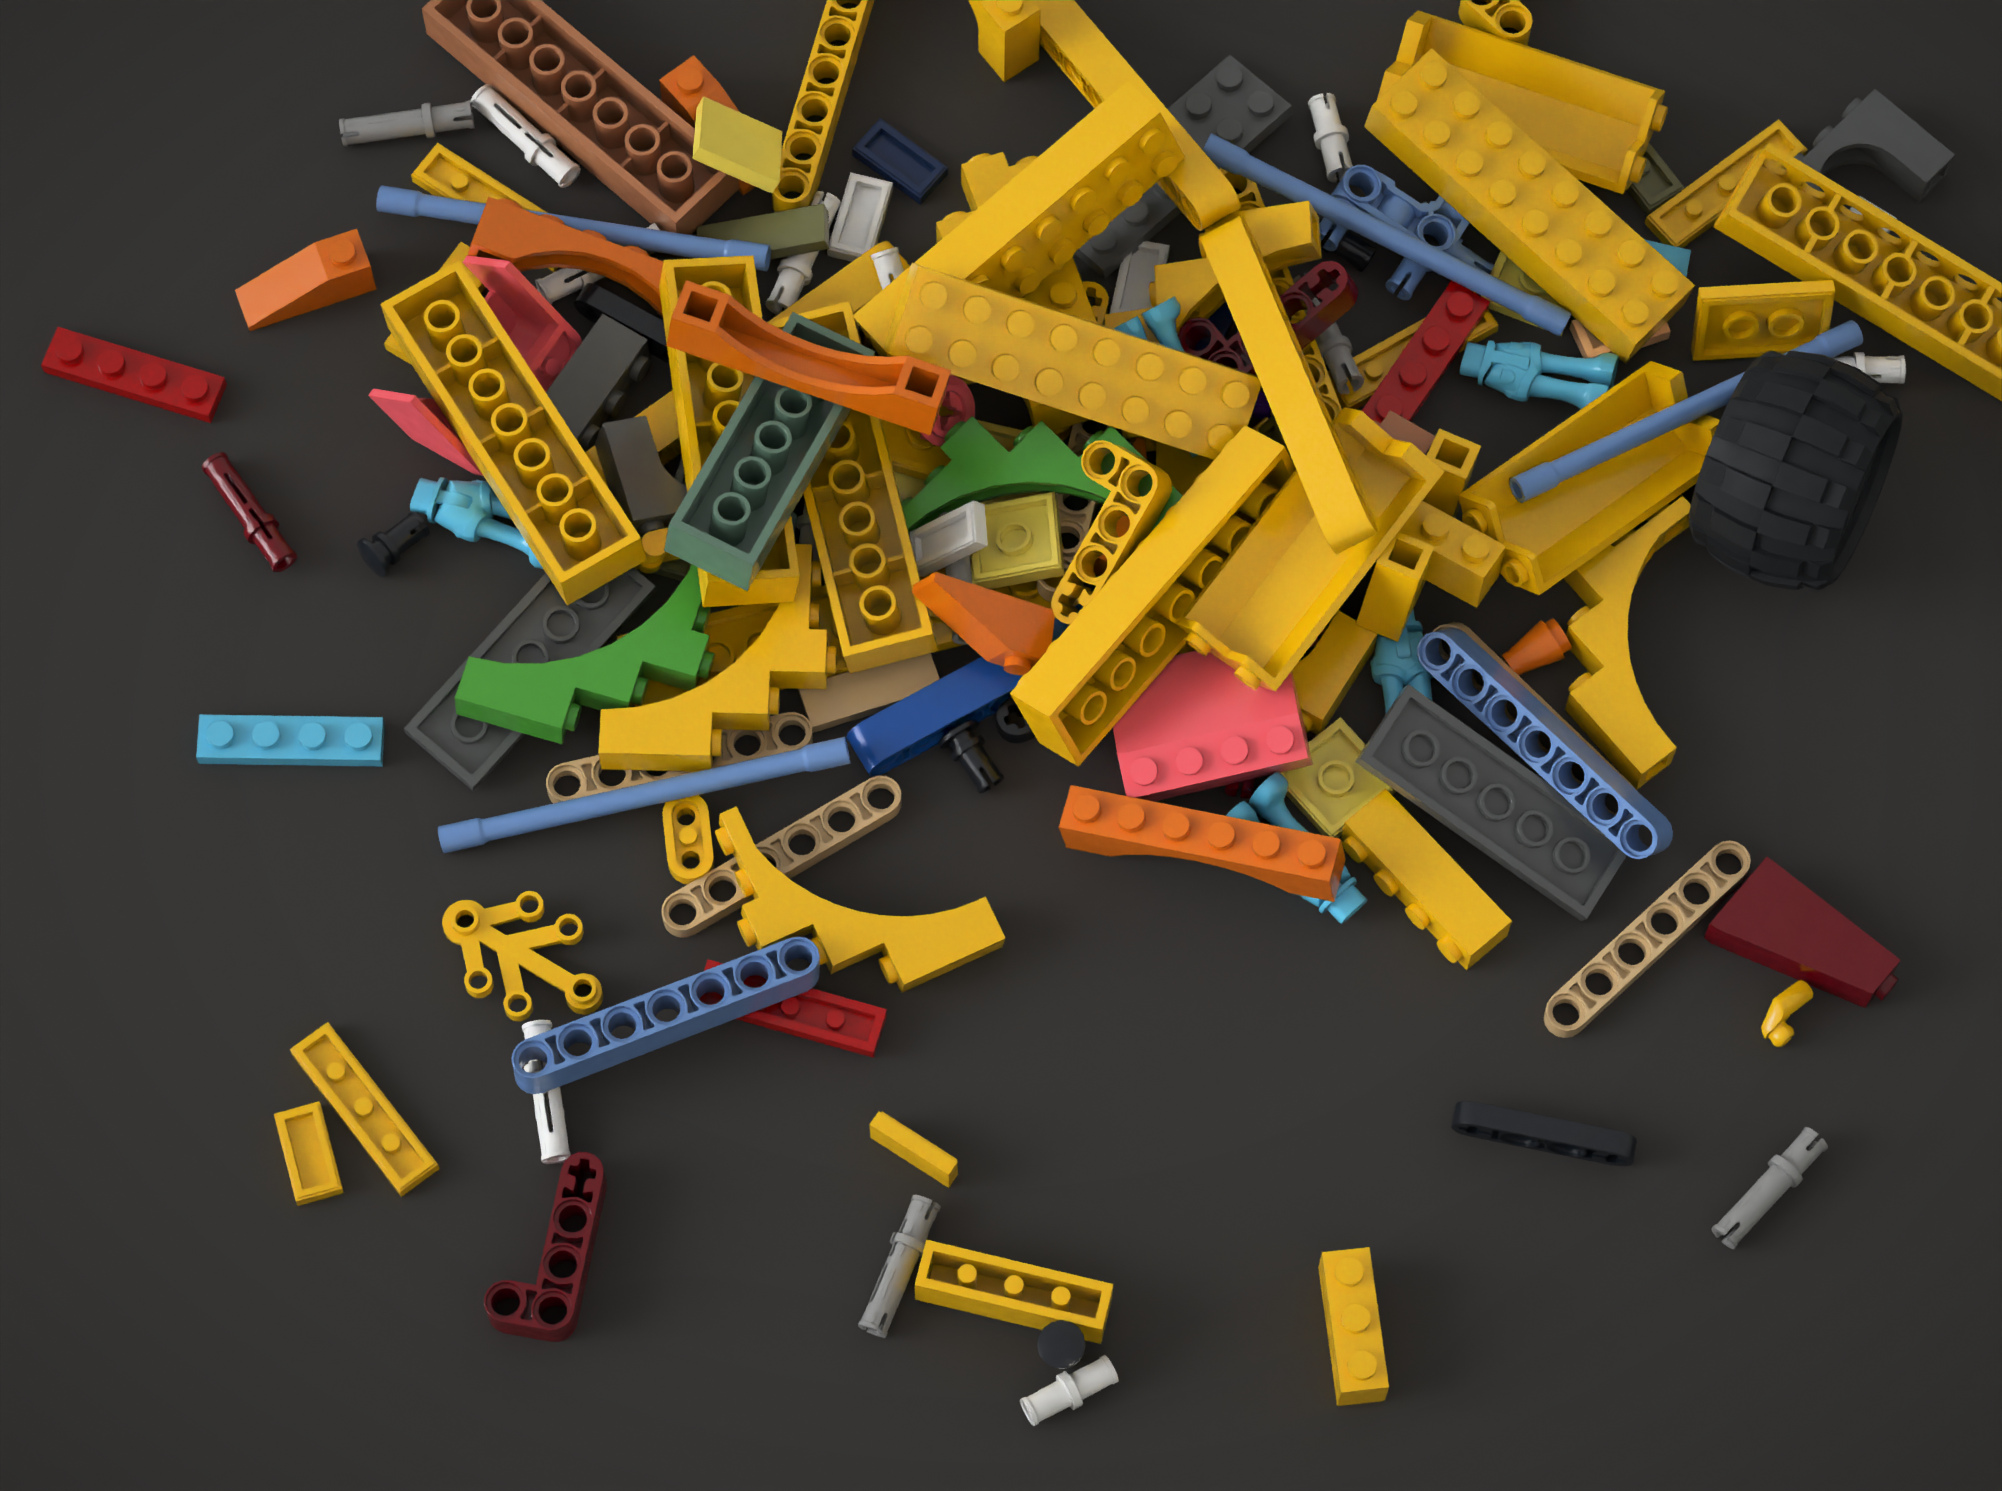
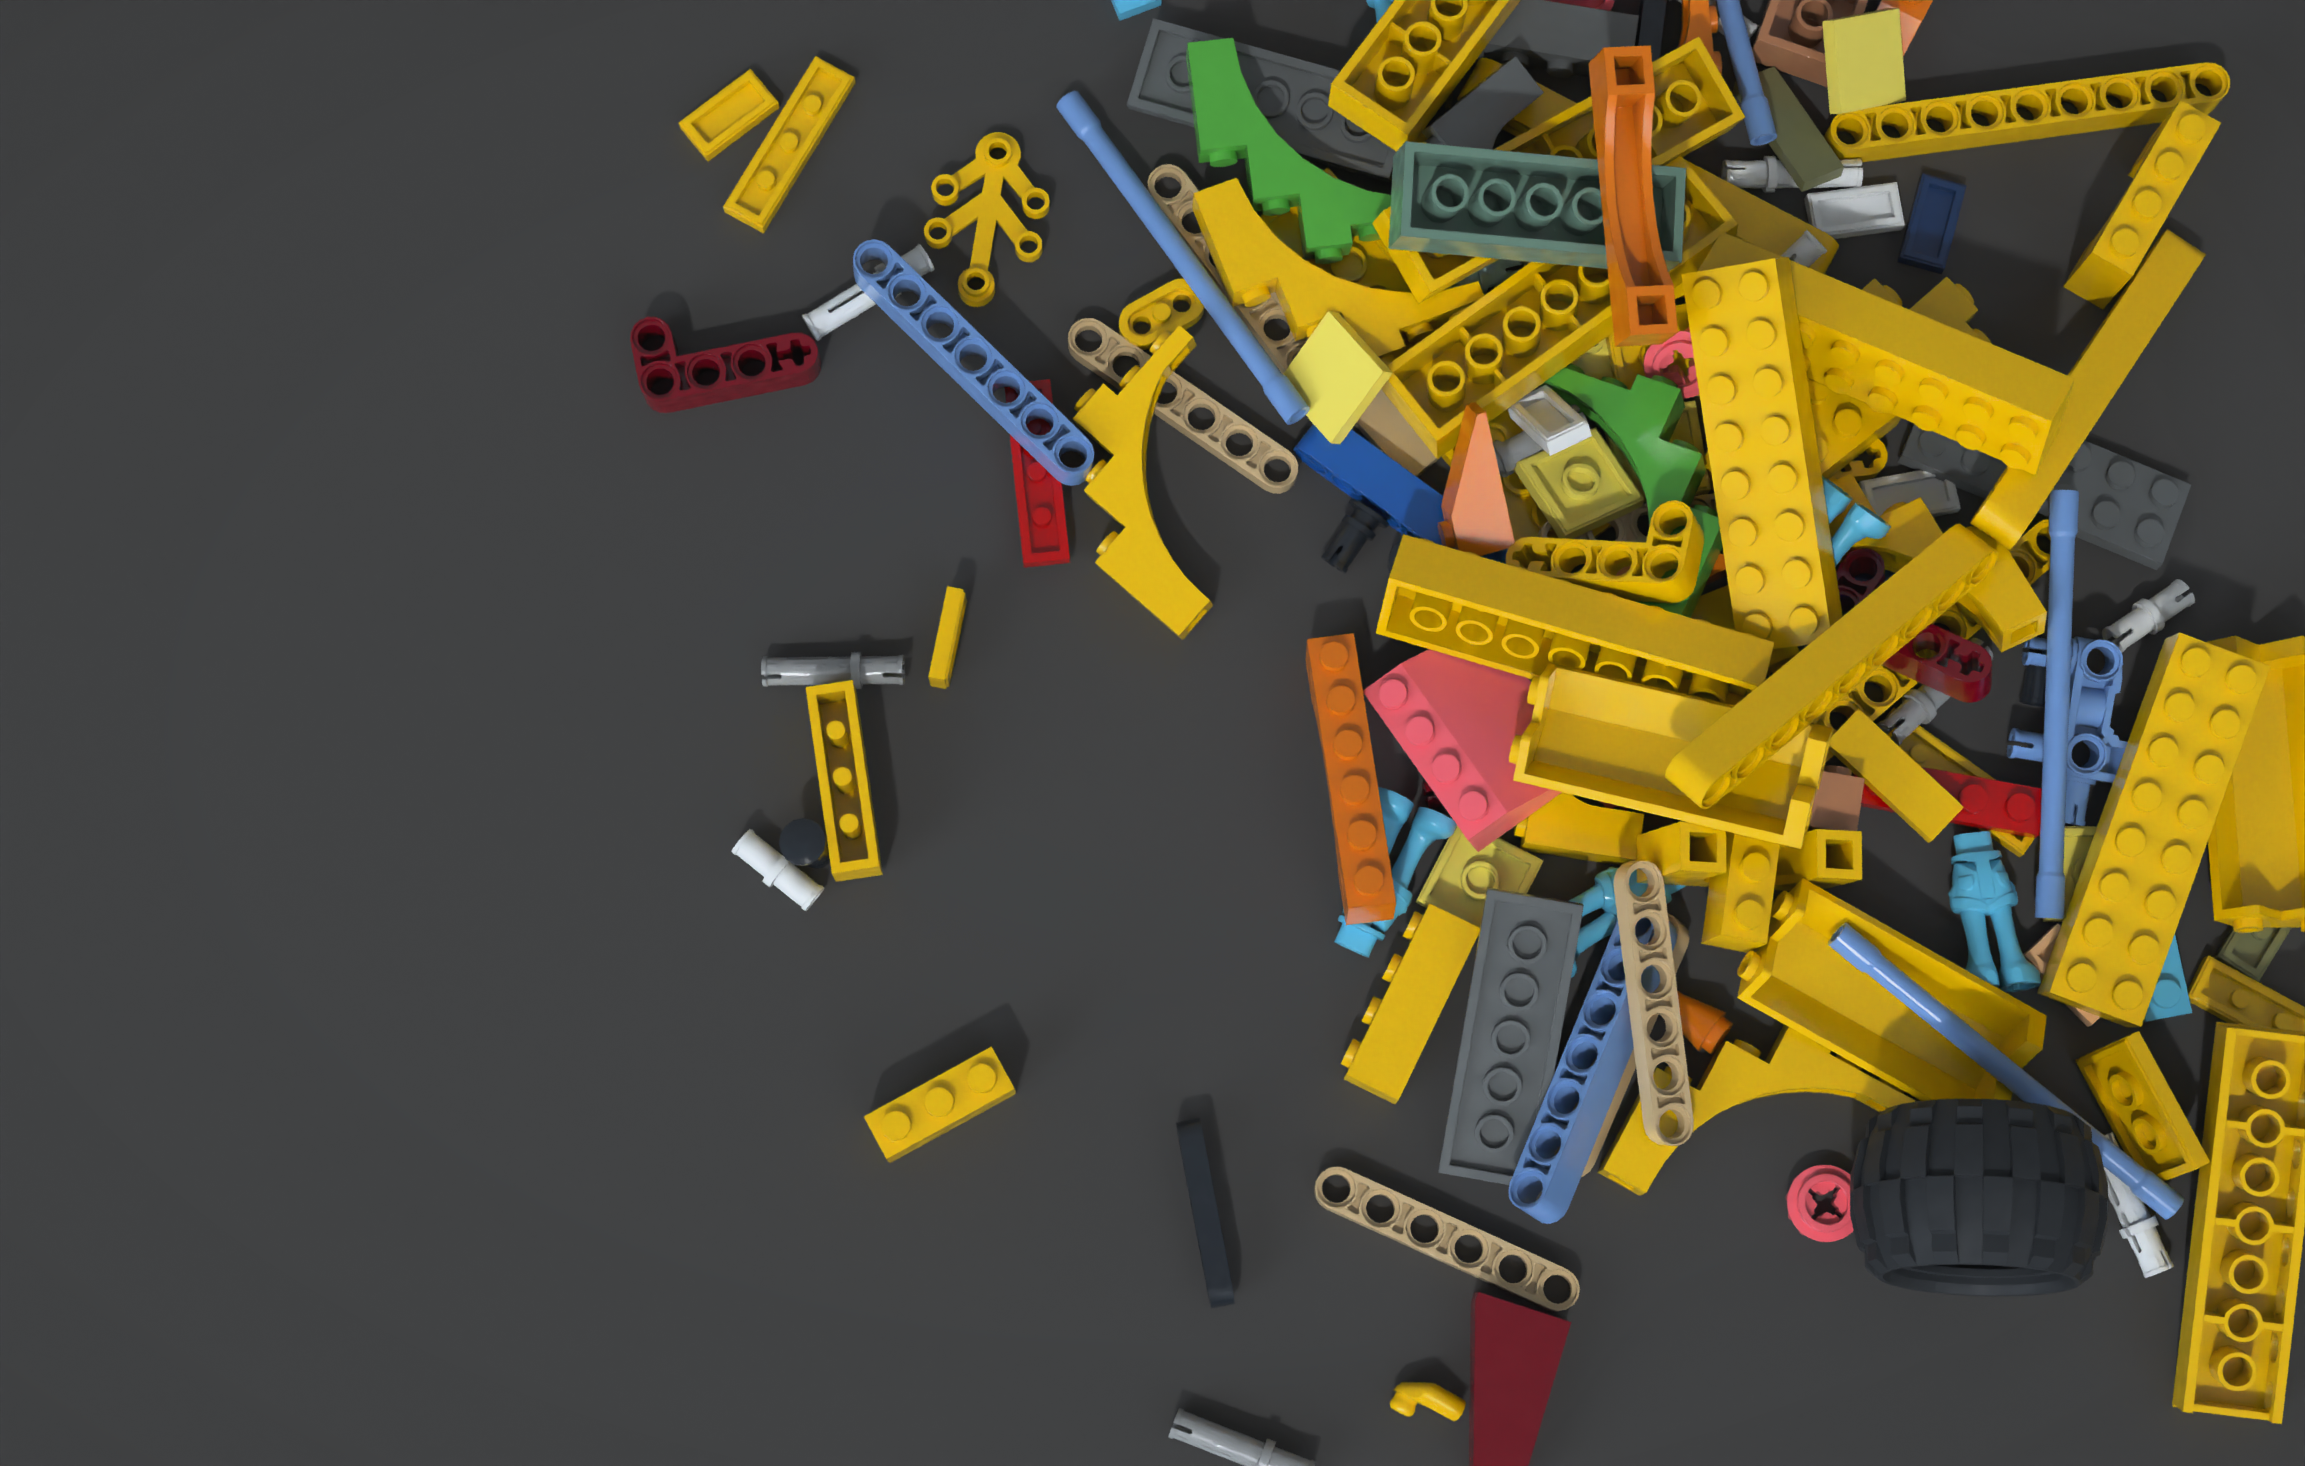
camera: 65 degrees right, 10 degrees up
(828, 699) = (1336, 376): none -> light yellow tile
(1398, 387) = (1894, 776): none -> yellow tile
(1516, 671) = (1661, 1001): none -> tan beam
(1742, 593) = (1801, 1206): none -> coral gear

